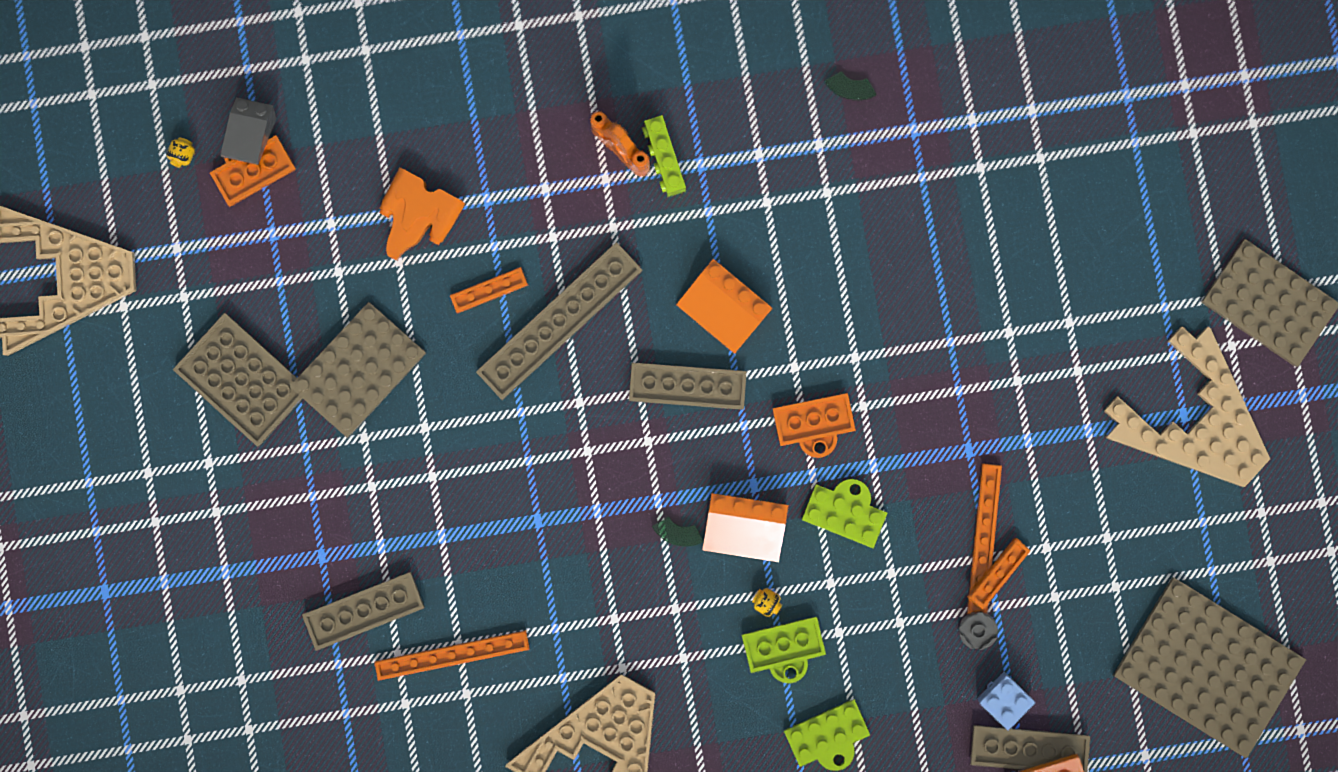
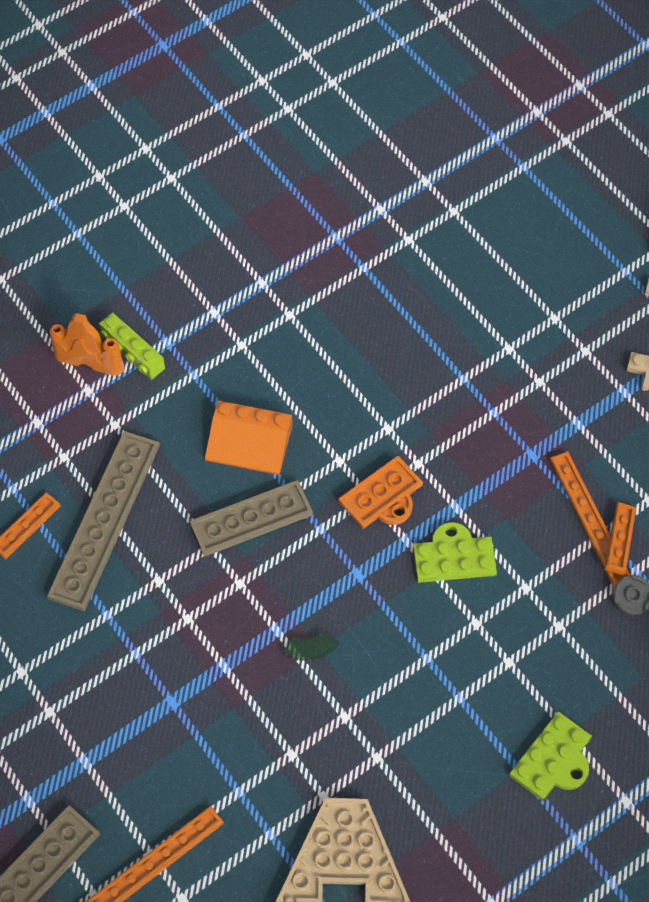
camera: 25 degrees left, 25 degrees down
(745, 527) = (369, 609): slope -> none
(767, 602) = (427, 664): yellow head -> none
(784, 648) = (466, 697): lime plate -> none
(850, 89) = (264, 230): clear green tile -> none

